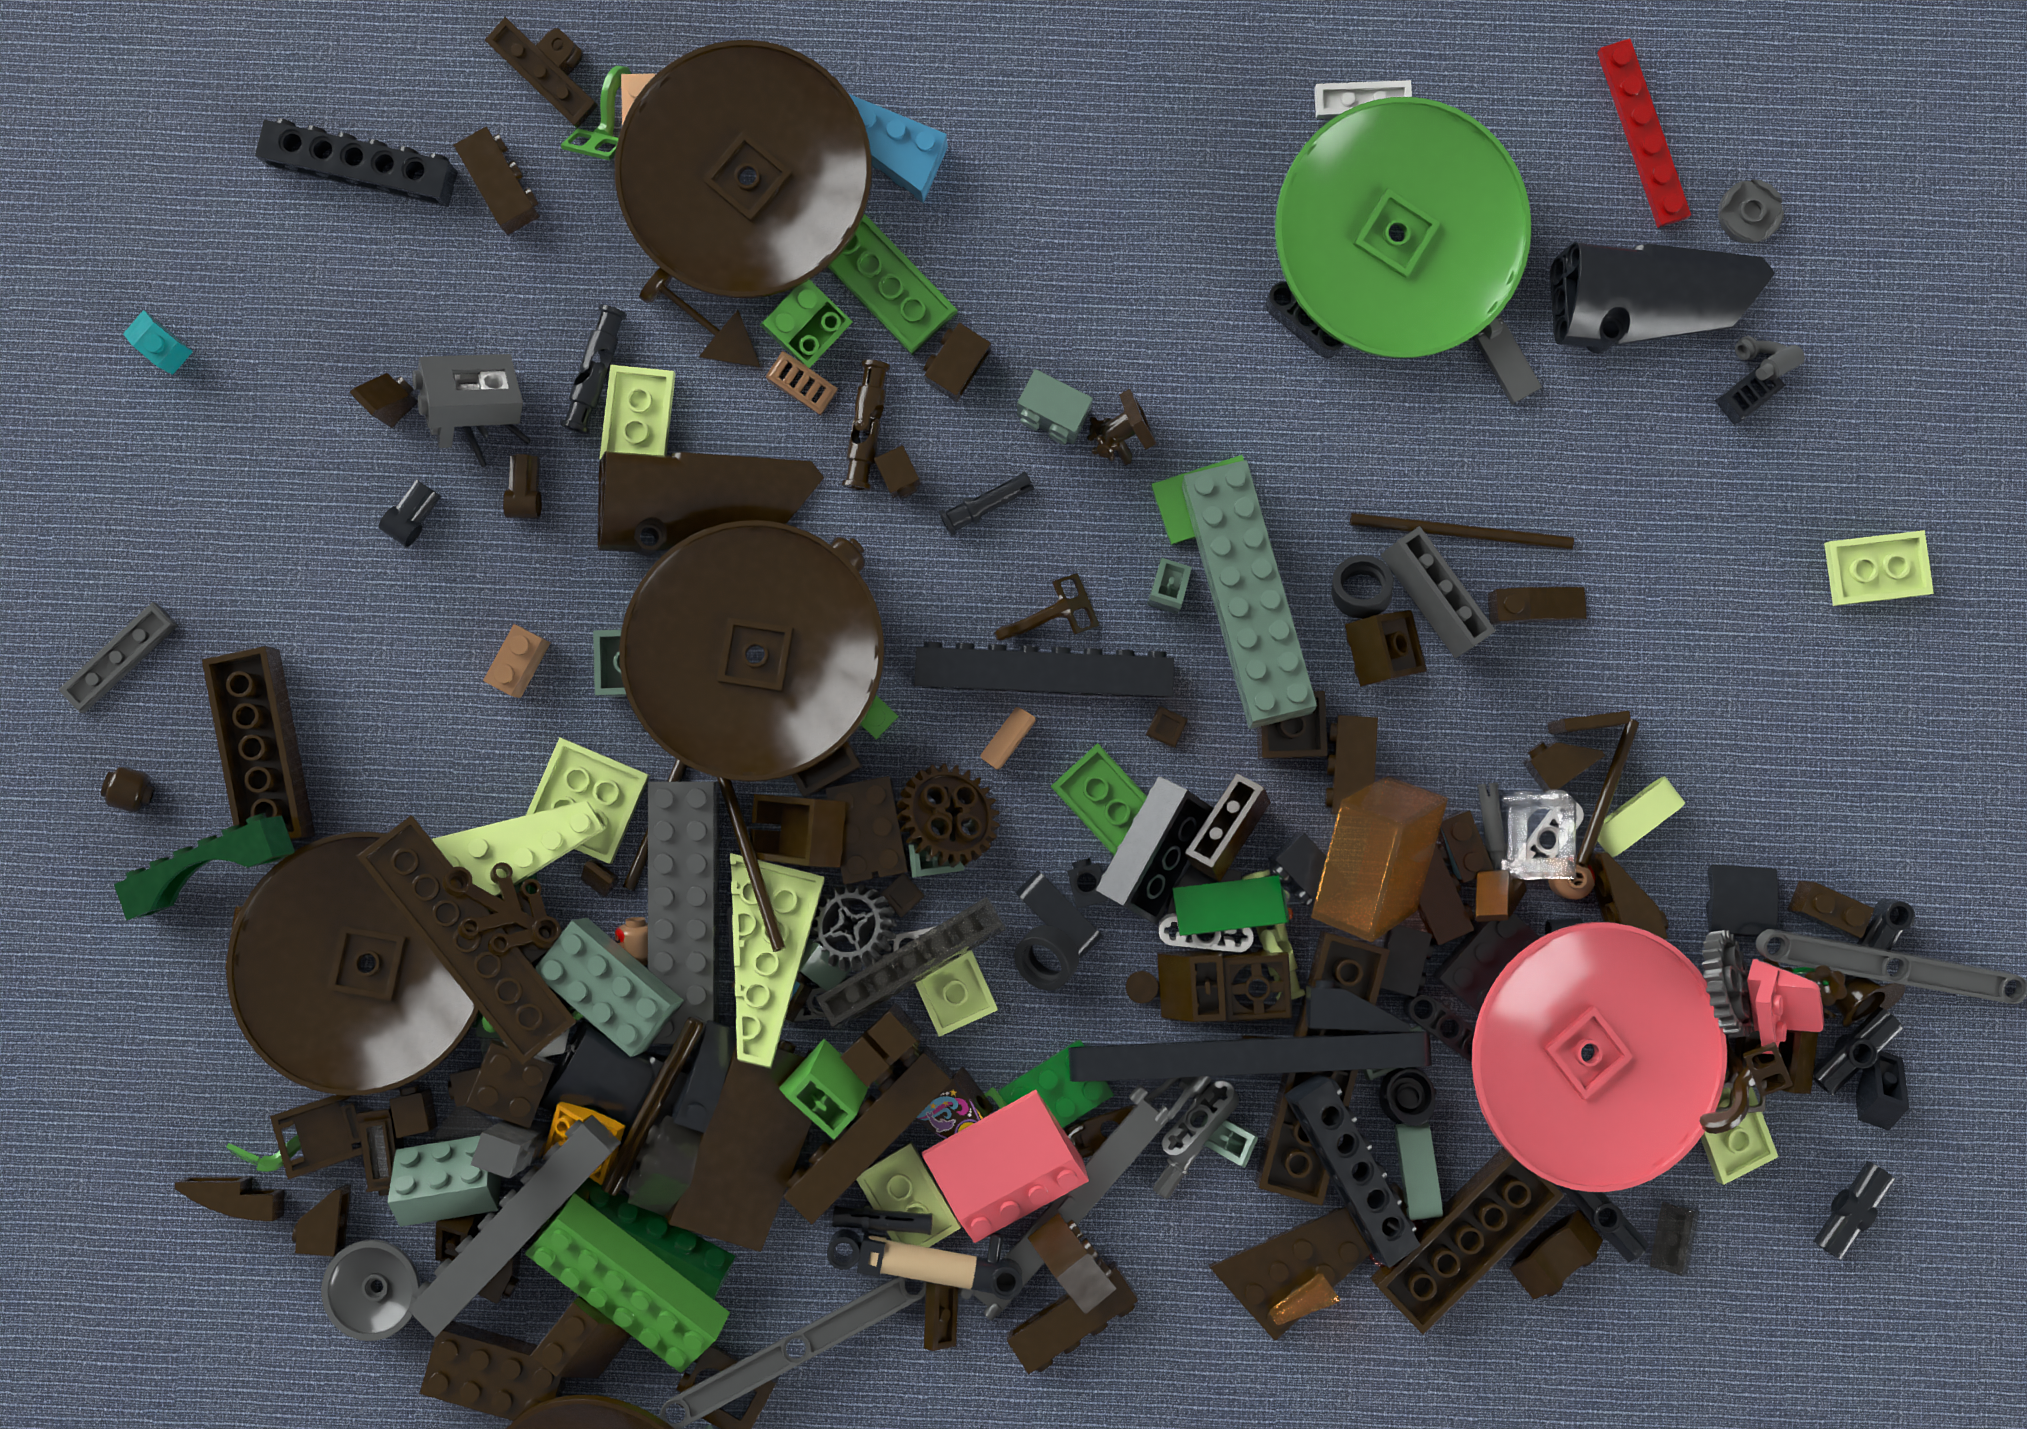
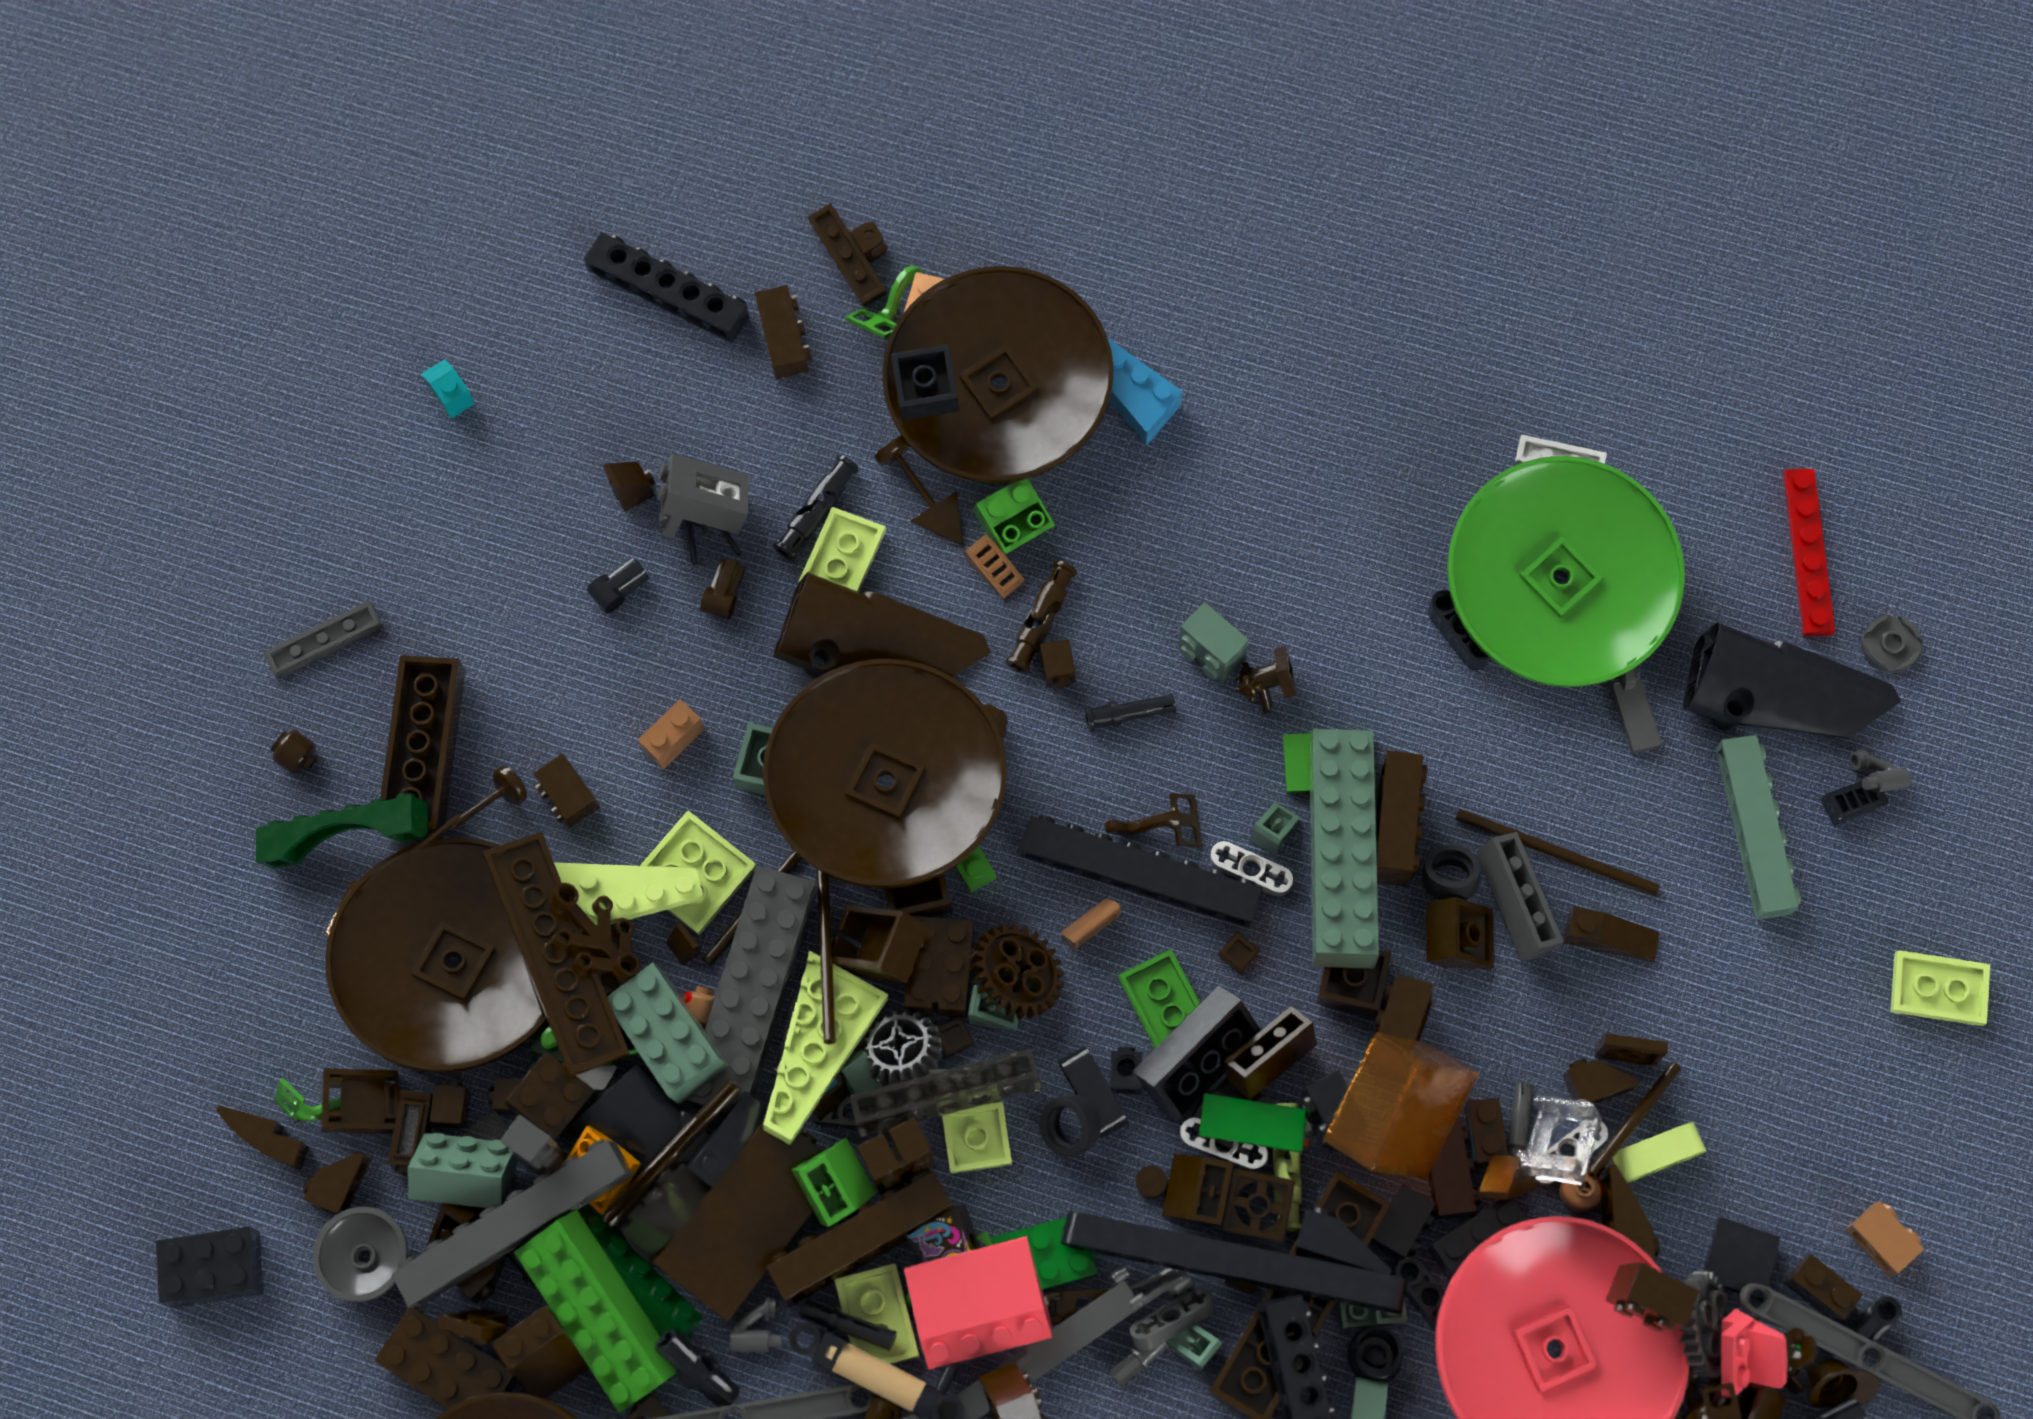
camera: 15 degrees right, 15 degrees down
(223, 1343) = (209, 1267): none -> black brick
(364, 765) = (507, 785): none -> dark brown piece
(425, 751) = (566, 791): none -> dark brown brick
(510, 1330) = (477, 1324): none -> dark brown plate
(668, 203) = (925, 382): none -> black brick
(744, 1309) = (697, 1368): none -> black piece
(793, 1257) = (755, 1340): none -> dark grey plant
(892, 287) = (1097, 507): bright green tile -> none
(957, 361) = (1137, 584): dark brown brick -> none
(1178, 648) = (1275, 869): none -> white beam
(1294, 541) = (1397, 817): none -> dark brown brick
(1659, 449) = (1757, 827): none -> sand green brick
(1681, 988) = (1652, 1297): none -> dark brown brick
(1879, 841) = (1885, 1238): none -> medium nougat brick

